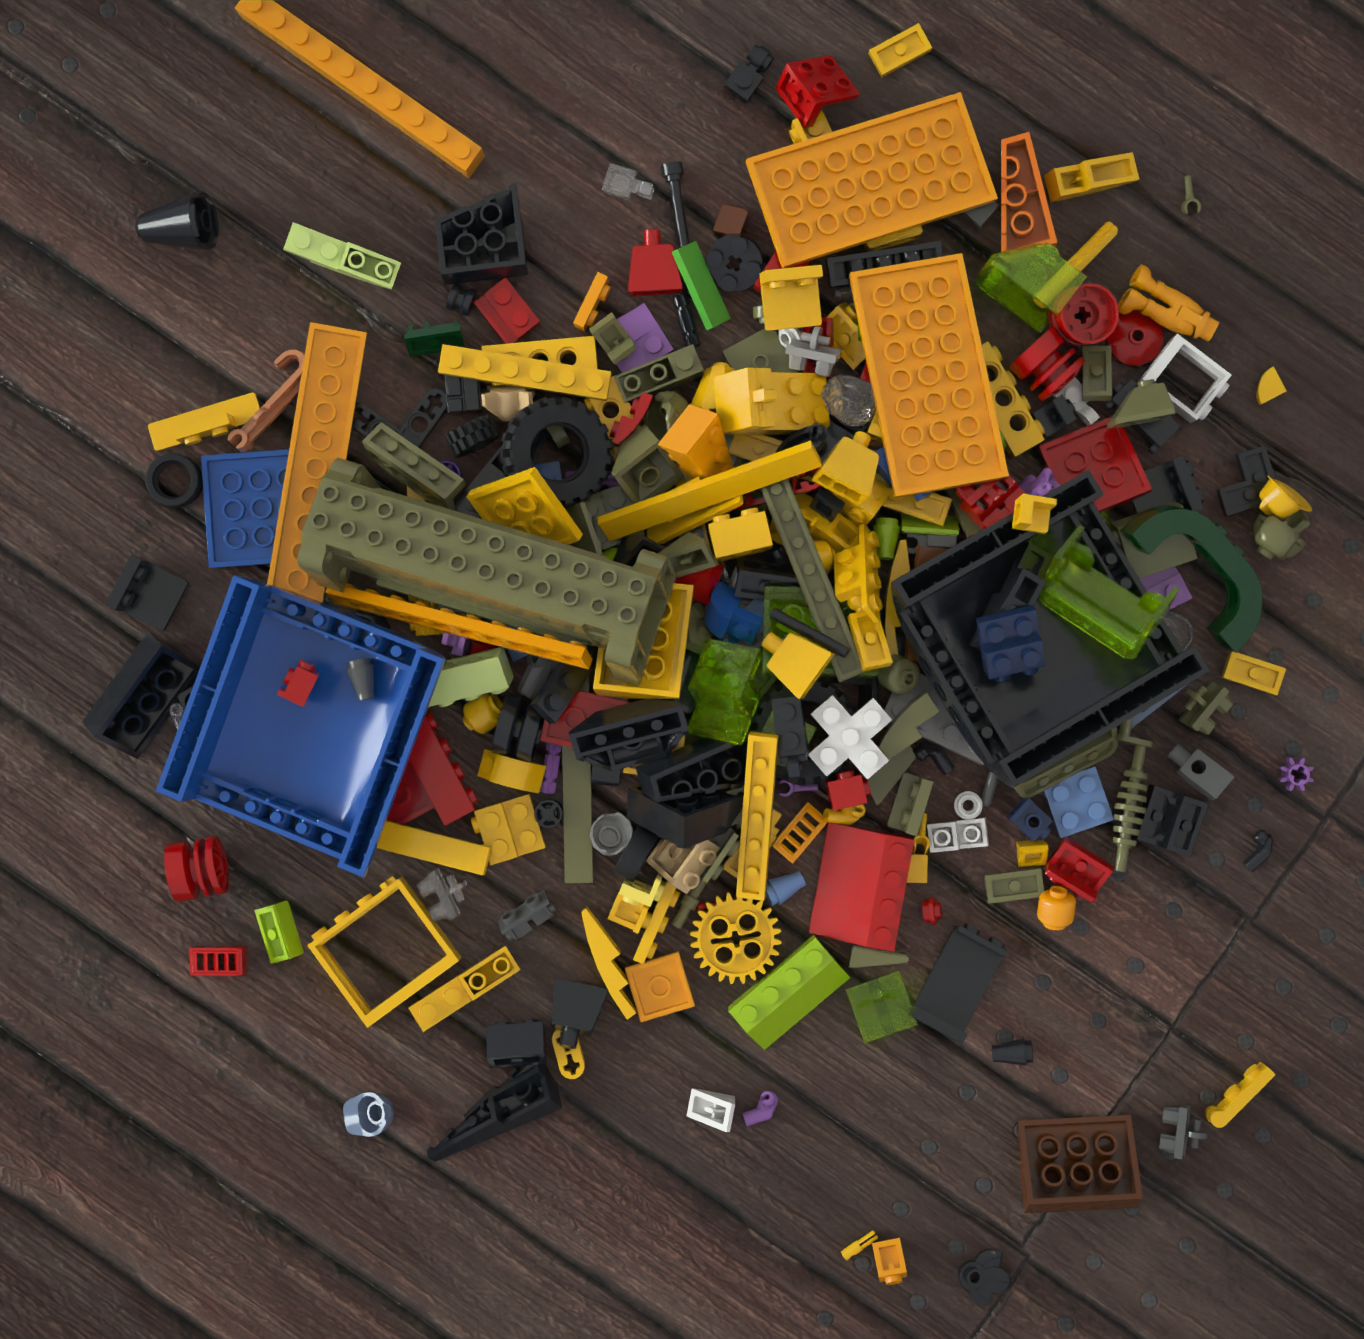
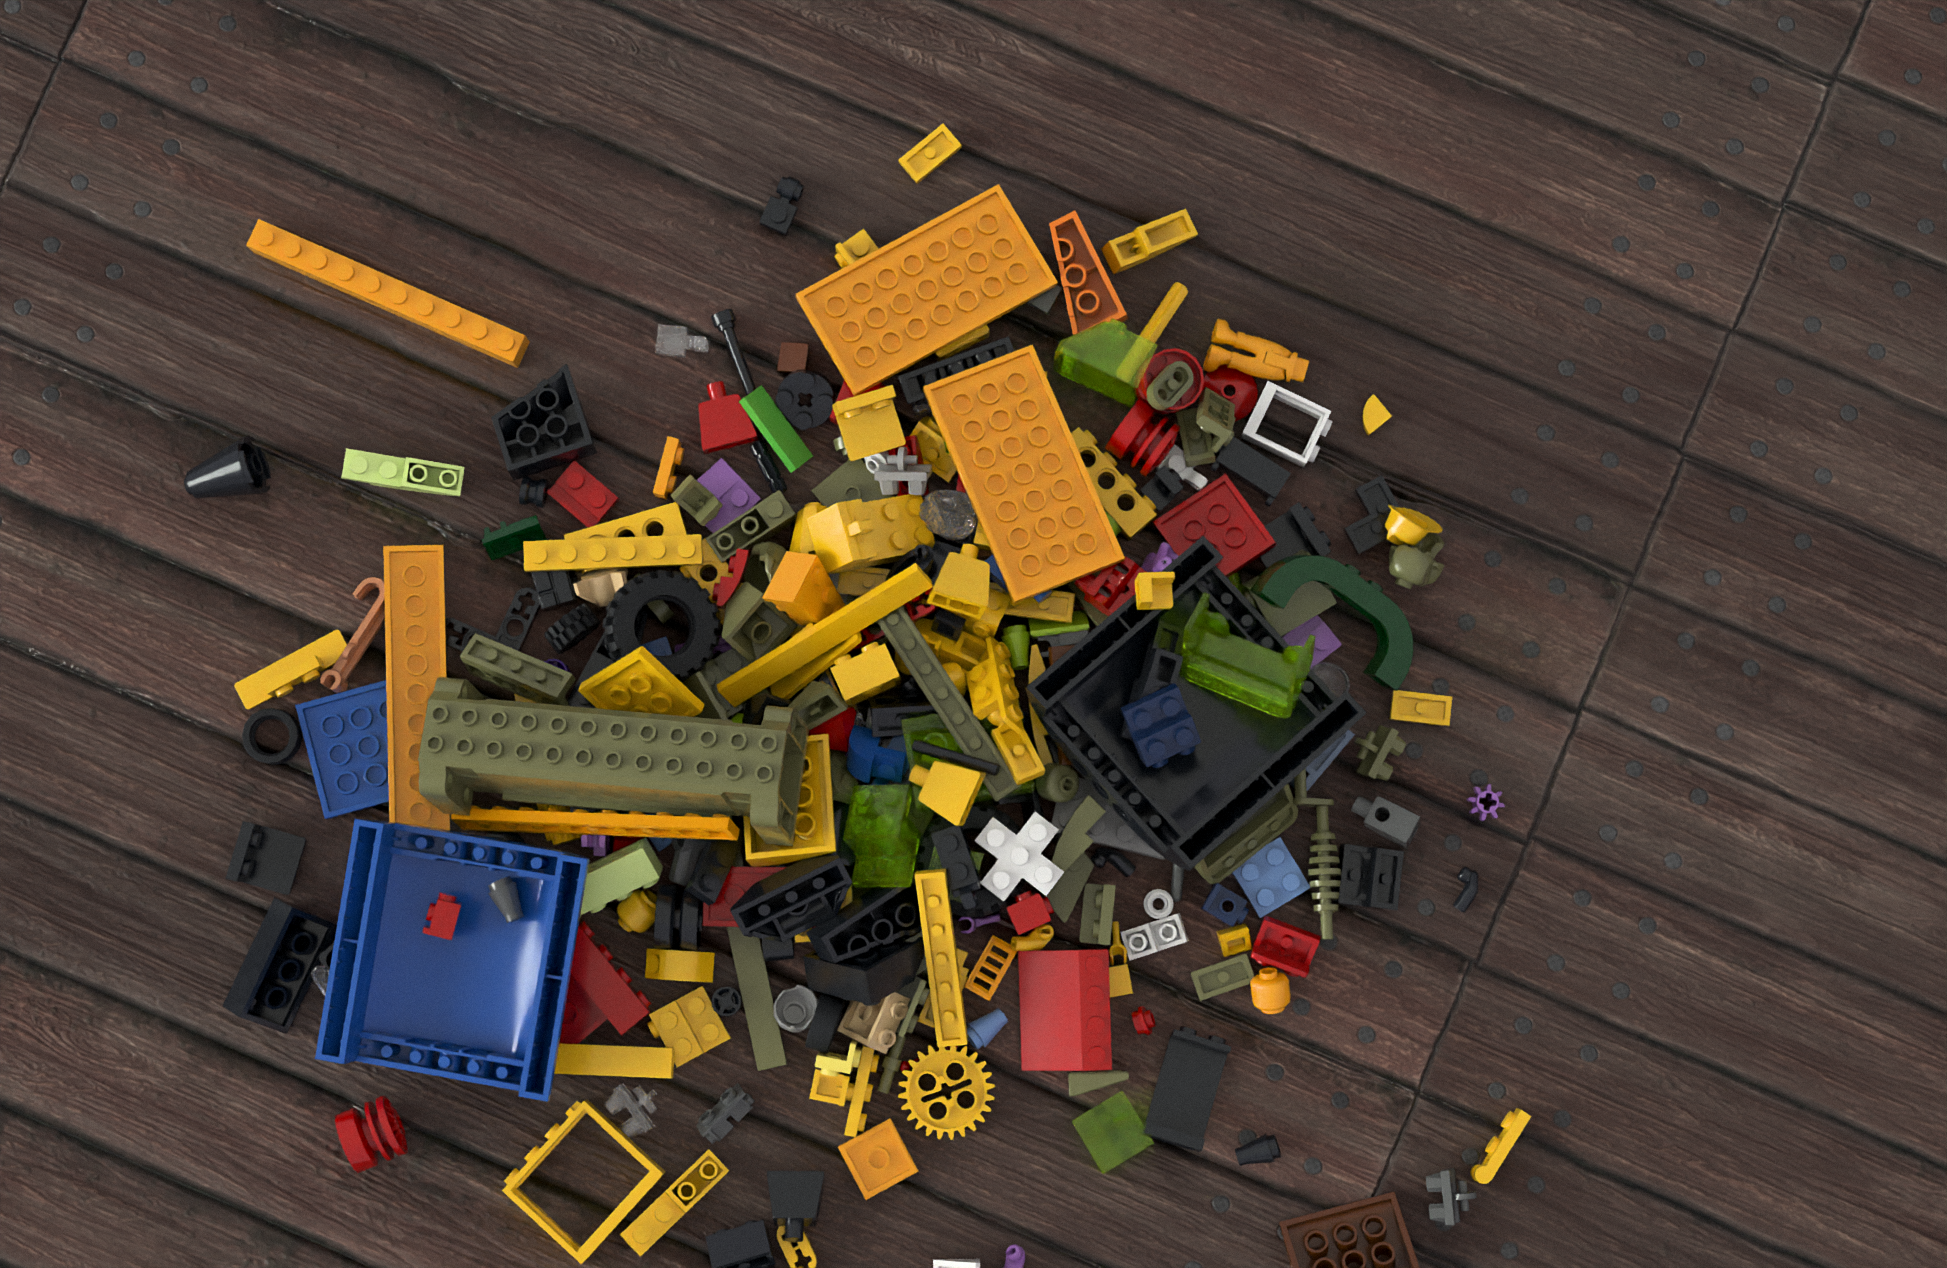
camera: 10 degrees left, 5 degrees down
(240, 960) = (434, 1224): red slope -> none
(279, 932) = (469, 1184): lime slope -> none
(551, 762) = (720, 948): medium lavender axle -> none
(604, 952) = (812, 1133): yellow slope -> none
(788, 992) = (1013, 1137): lime slope -> none
(814, 83) = (849, 205): red bracket -> none
(1085, 319) = (1169, 388): none -> olive plate
(1121, 359) = (1216, 417): none -> olive bracket
(1142, 405) = (1247, 460): olive slope -> none
(1190, 197) = (1253, 240): olive hand -> none

